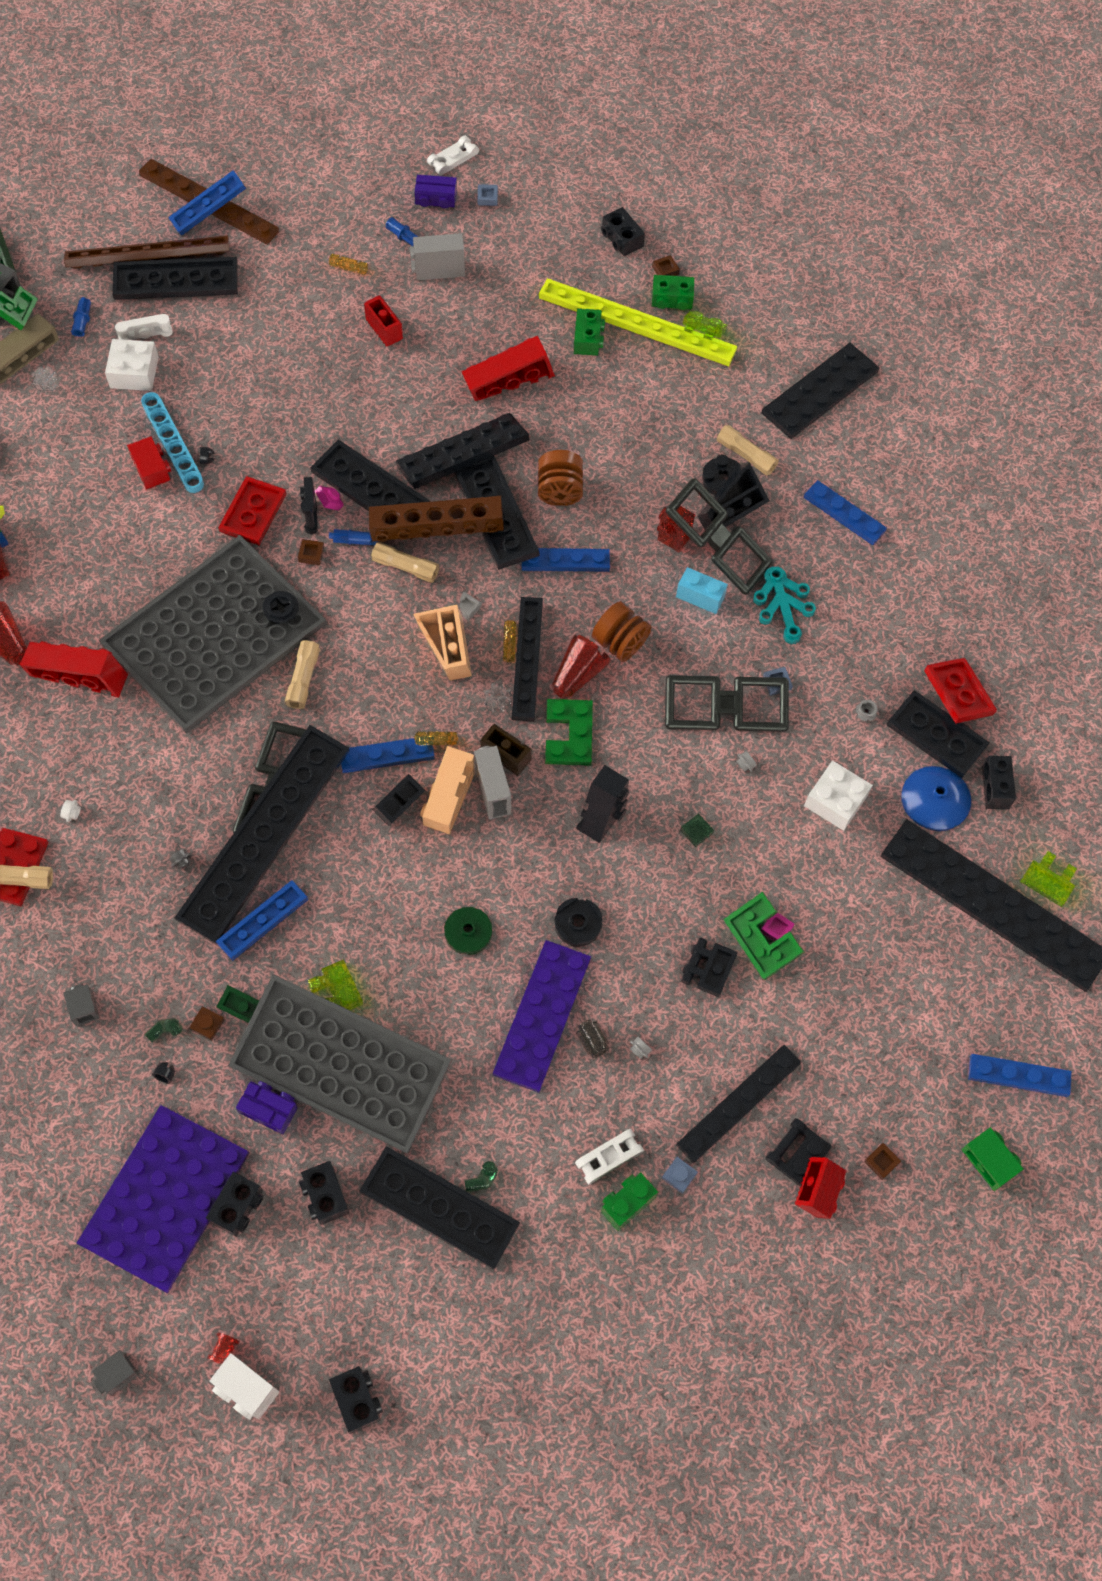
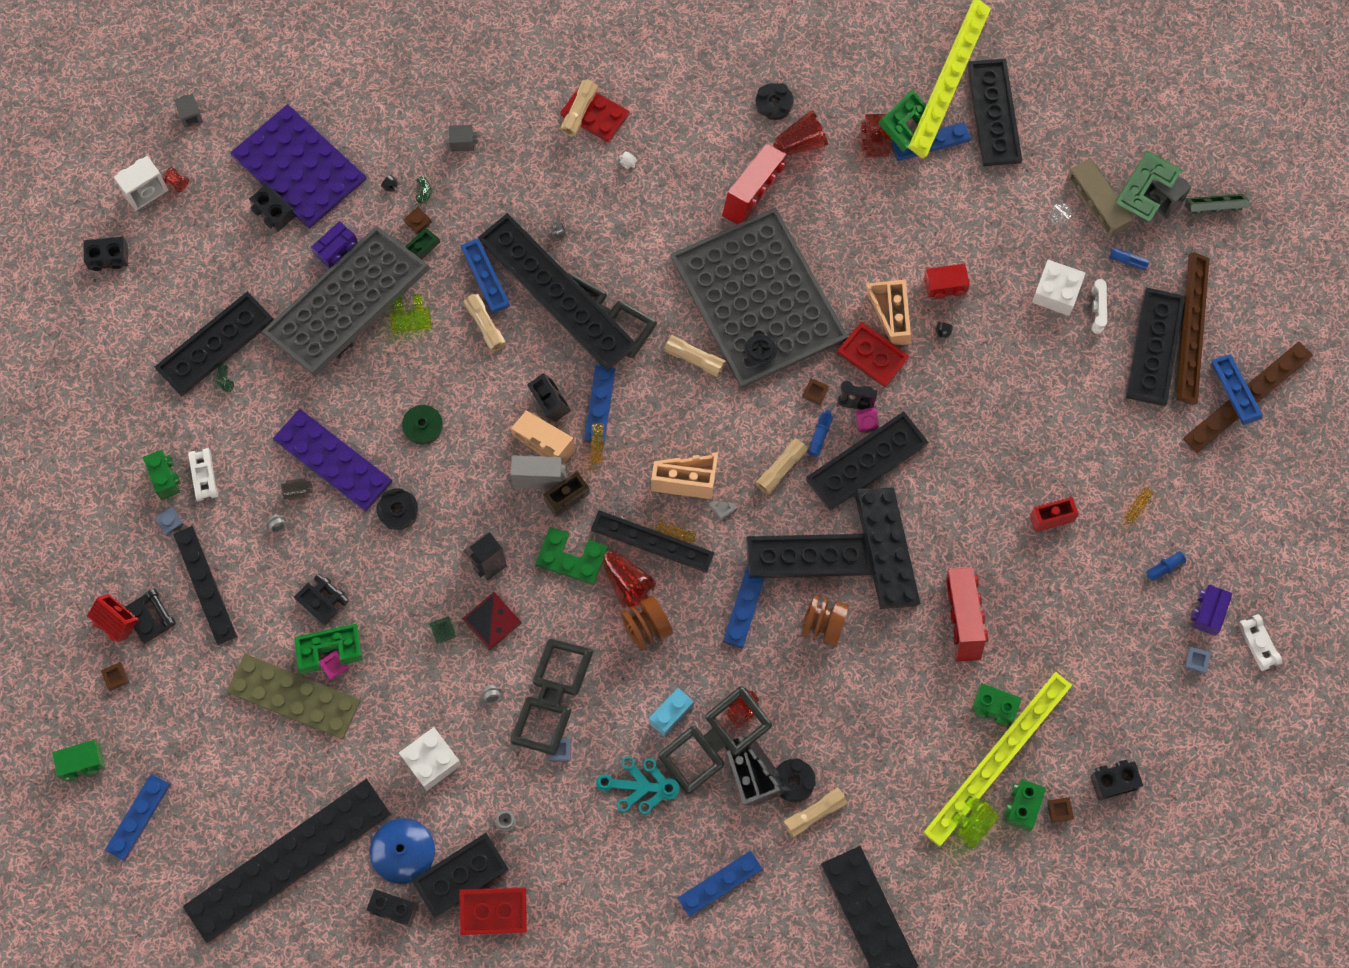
camera: 110 degrees right, 5 degrees up
(172, 442) = (966, 303): medium azure beam -> none
(199, 498) = (892, 308): none -> light nougat wedge
(310, 913) = (490, 333): none -> tan axle
(329, 1191) = (255, 273): black brick -> none
(397, 520) = (801, 545): reddish brown brick -> none
(438, 256) = (1118, 584): light grey brick -> none
(667, 787) = (491, 620): none -> tile
(826, 961) = (293, 696): none -> olive plate
(1048, 883) = (286, 913): clear neon green plate -> none

